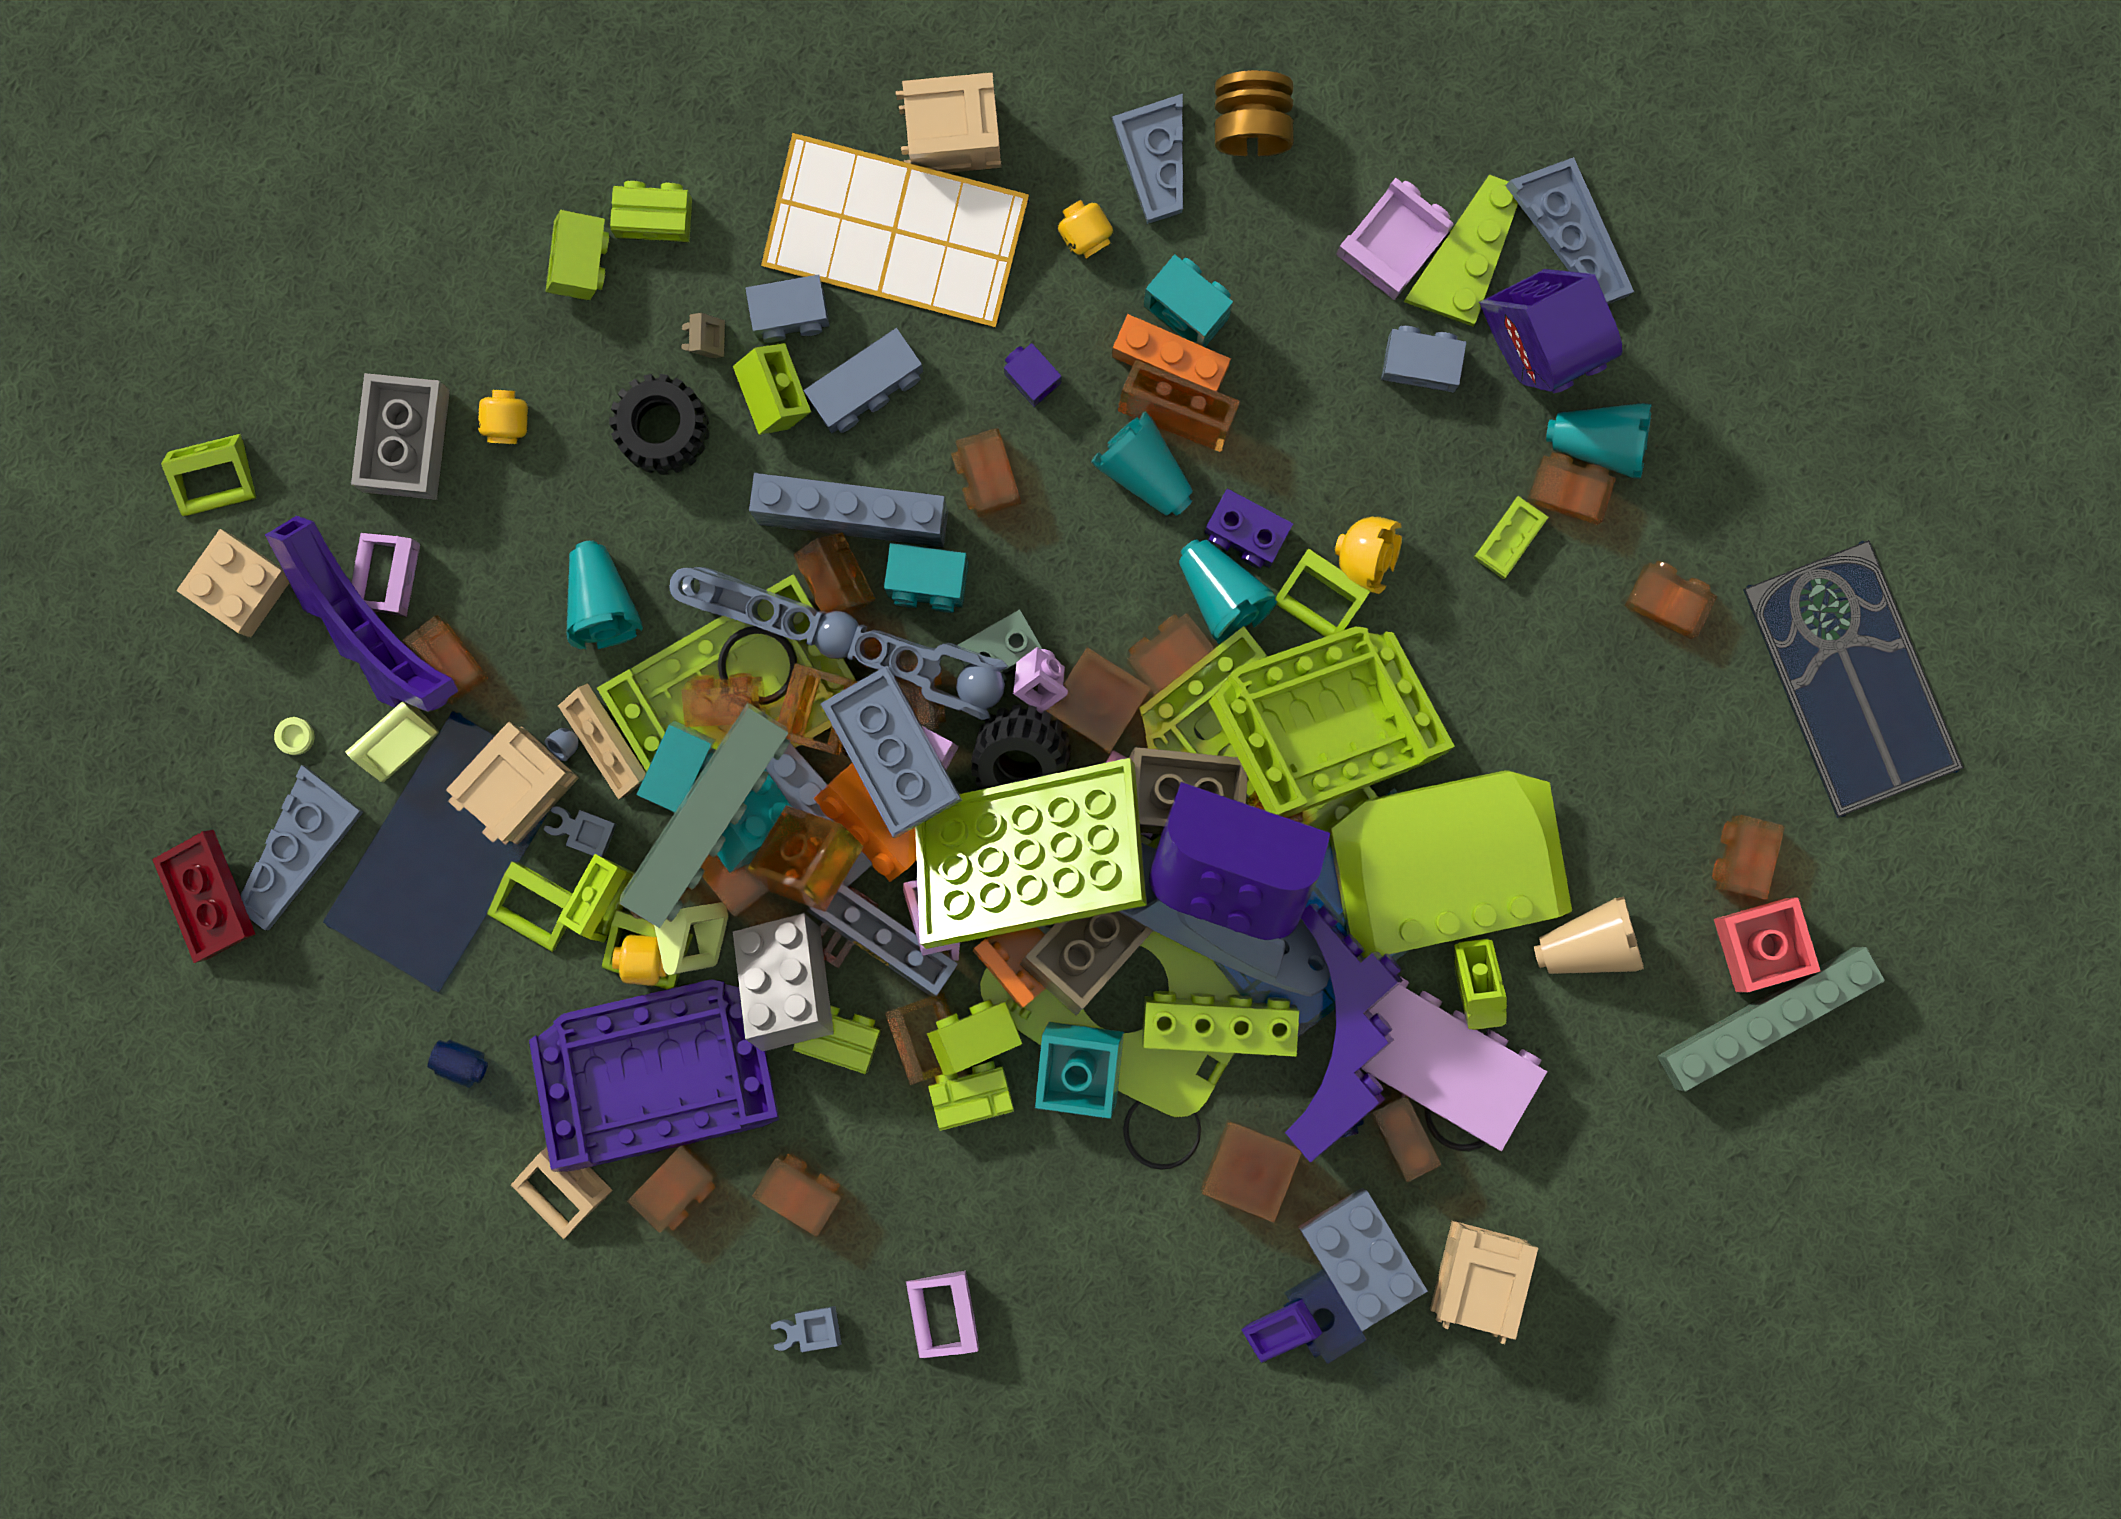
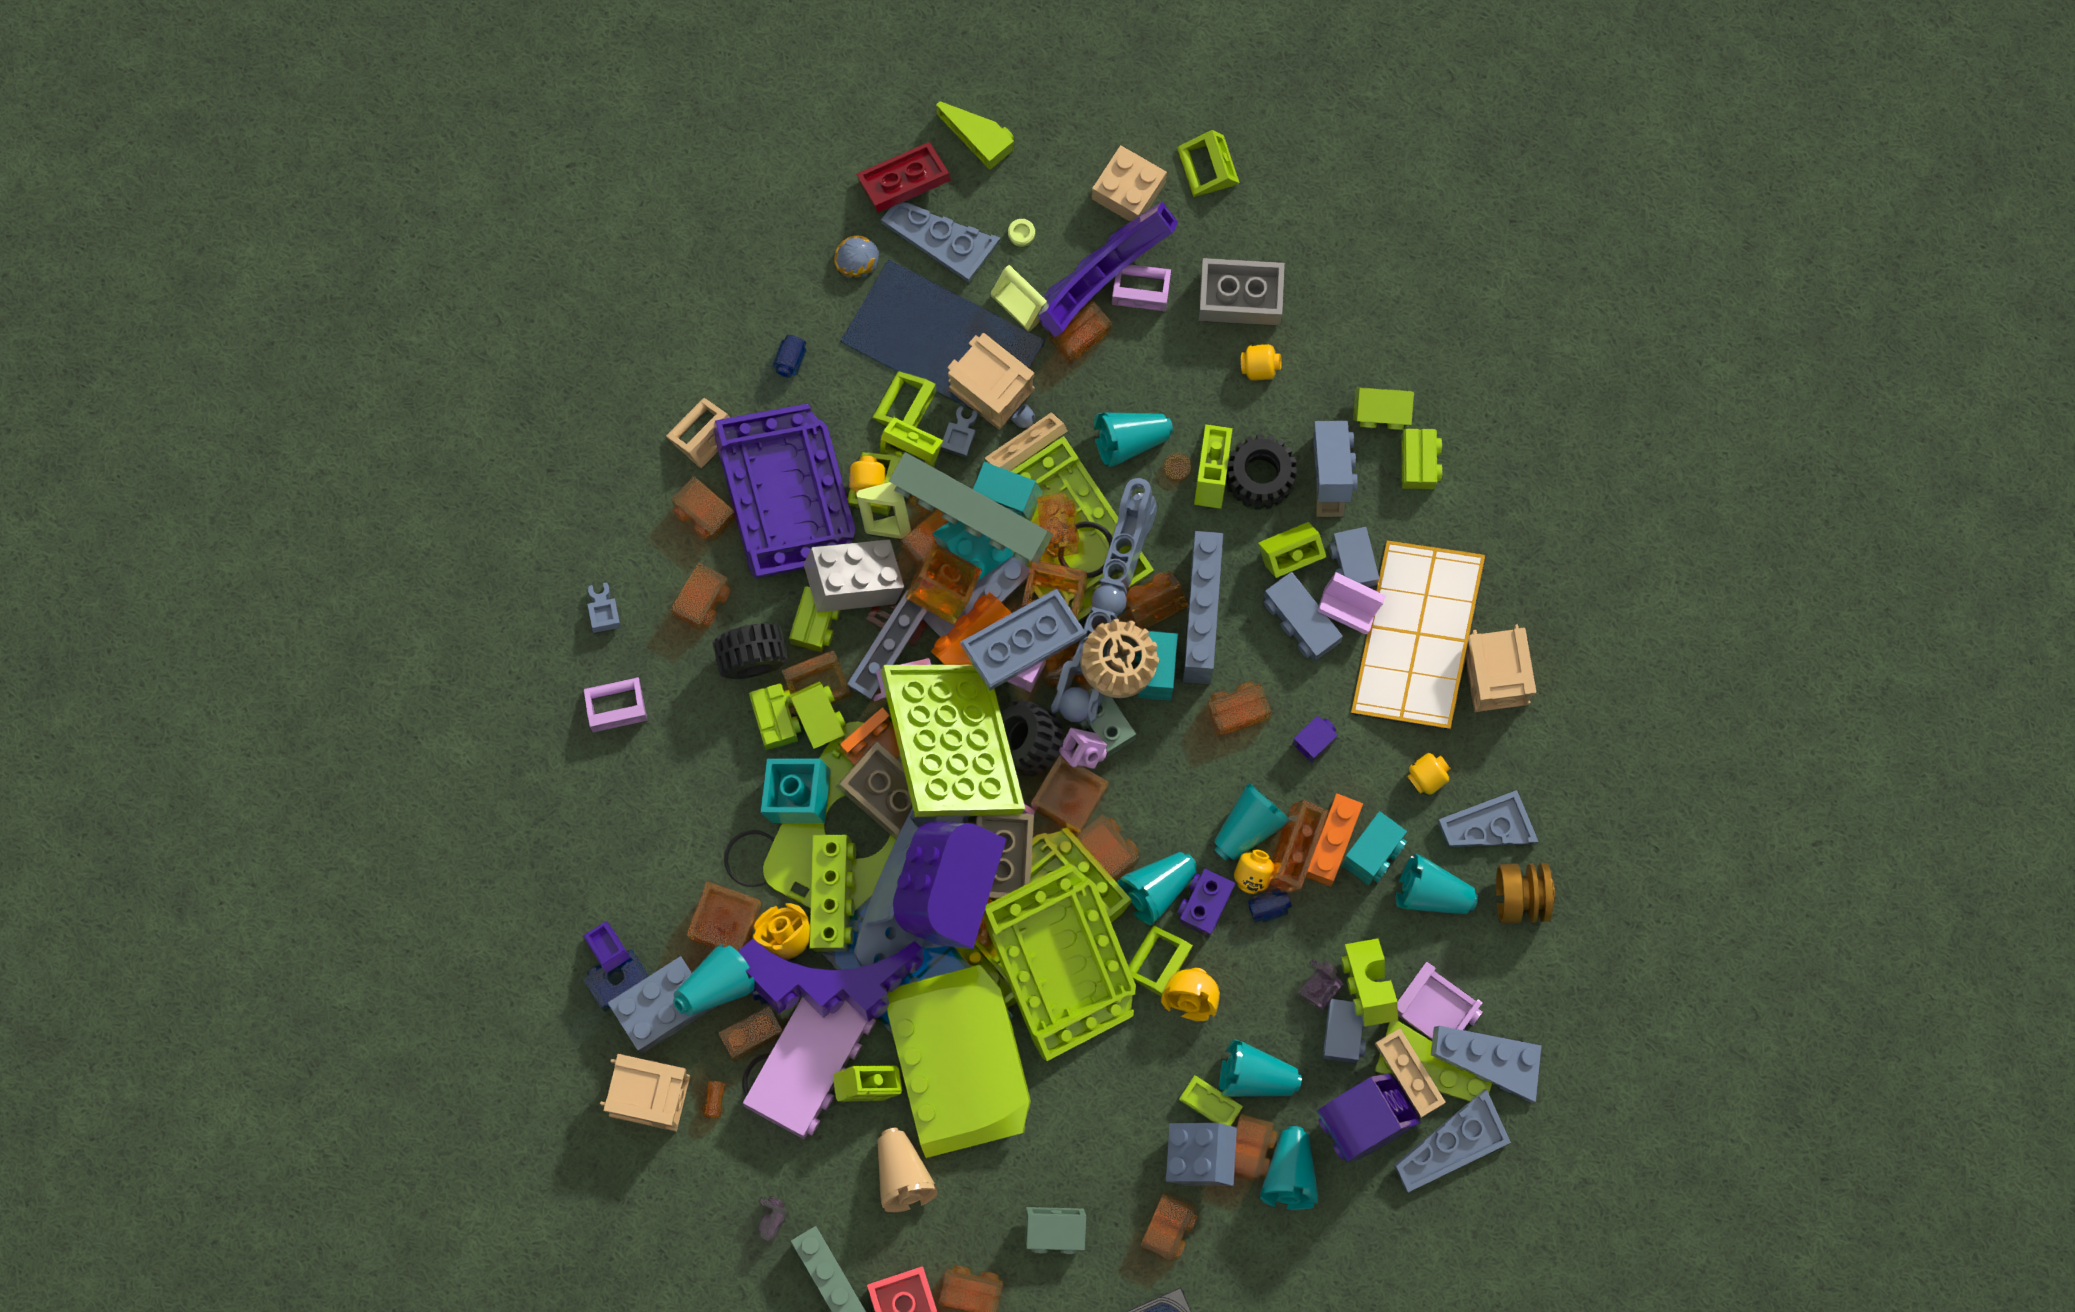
camera: 85 degrees right, 10 degrees down
(146, 787) = (979, 134): none -> lime slope
(317, 966) = (856, 257): none -> sand blue hair
(644, 538) = (1177, 467): none -> clear orange tile
(648, 489) = (1213, 466): none -> lime slope
(651, 324) = (1334, 461): none -> sand blue brick
(850, 315) = (1350, 603): none -> lavender panel
(882, 1127) = (750, 651): none -> black tyre
(935, 654) = (1117, 677): none -> tan gear
(1209, 464) = (1253, 871): none -> yellow head
(1241, 234) = (1433, 889): none -> teal cone
(1253, 447) = (1269, 905): none -> clear blue brick
(1271, 1092) = (783, 931): none -> yellow cylinder
(1347, 1187) = (714, 982): none -> teal cone
(1362, 386) = (1321, 985): none -> clear purple bracket
(1396, 314) = (1374, 1000): none -> lime arch
(1468, 169) = (1491, 1058): none -> sand blue wing
(1477, 477) = (1256, 1073): none -> teal cone
(1485, 276) = (1410, 1073): none -> tan plate
(1487, 1189) = (714, 1099): none -> clear orange pin
(1585, 550) = (1201, 1154): none -> sand blue brick
(1654, 1116) = (772, 1223): none -> bracket
(1672, 745) = (1055, 1229): none -> sand green brick

